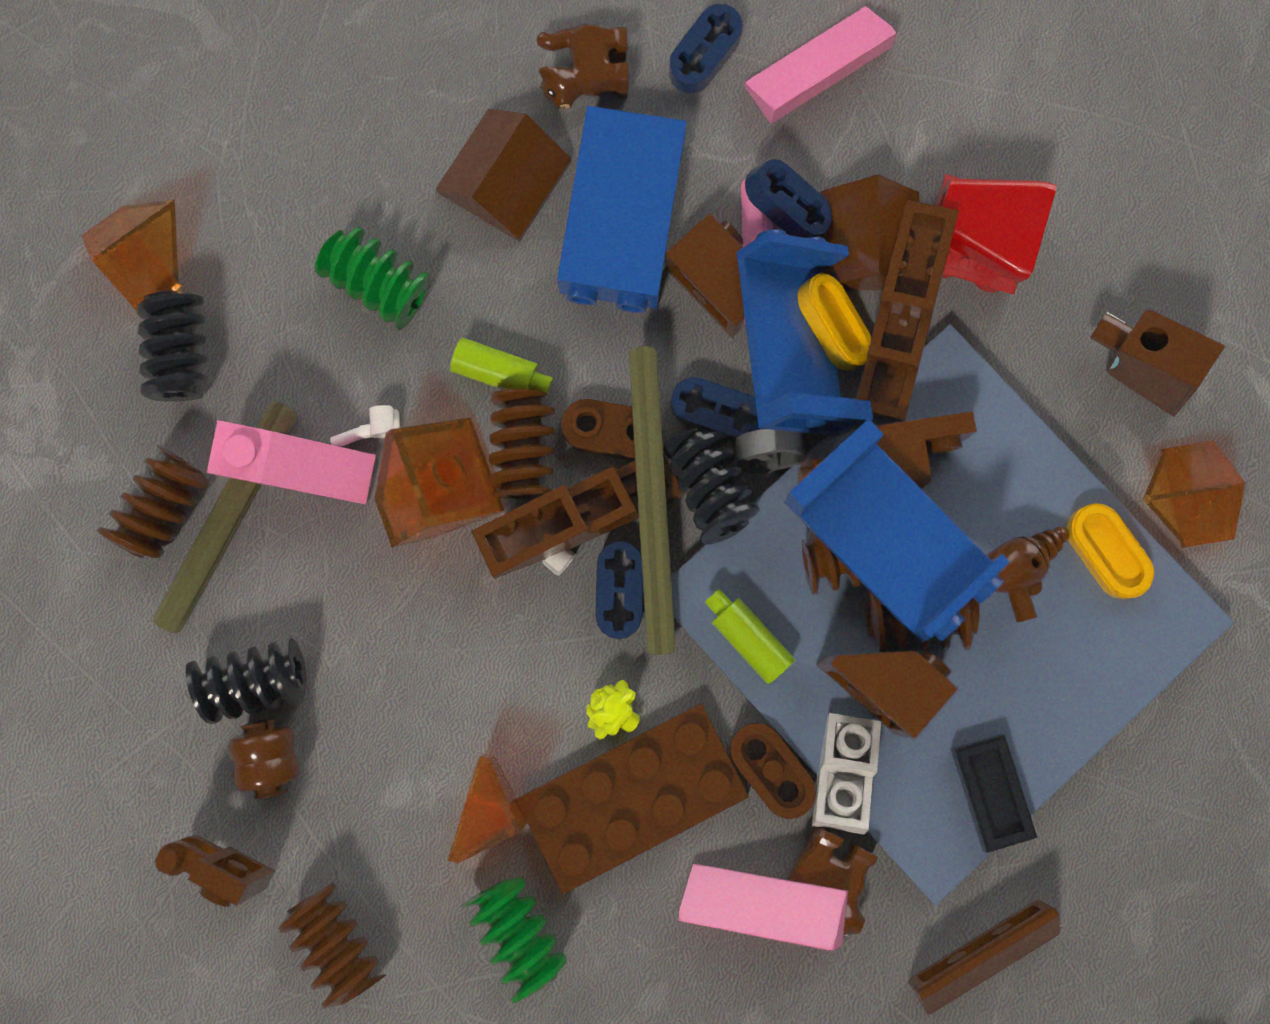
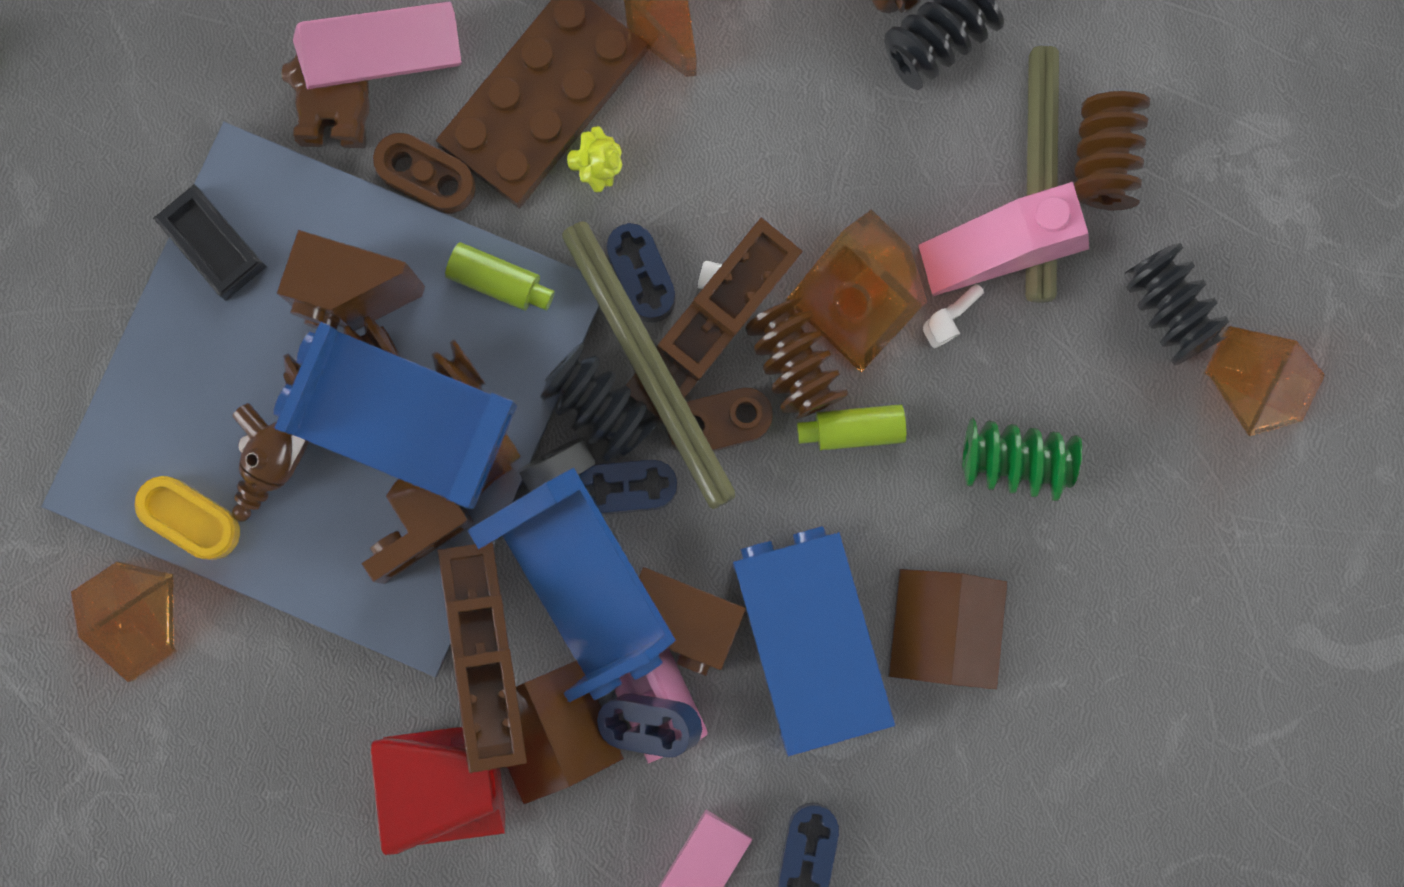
camera: 155 degrees right, 0 degrees up
(591, 72) = (911, 772): reddish brown animal -> none
(834, 321) = (550, 624): yellow tile -> none
(846, 773) = (353, 195): white slope -> none
(985, 955) = (163, 101): reddish brown slope -> none
(1158, 357) = (189, 730): reddish brown torso -> none

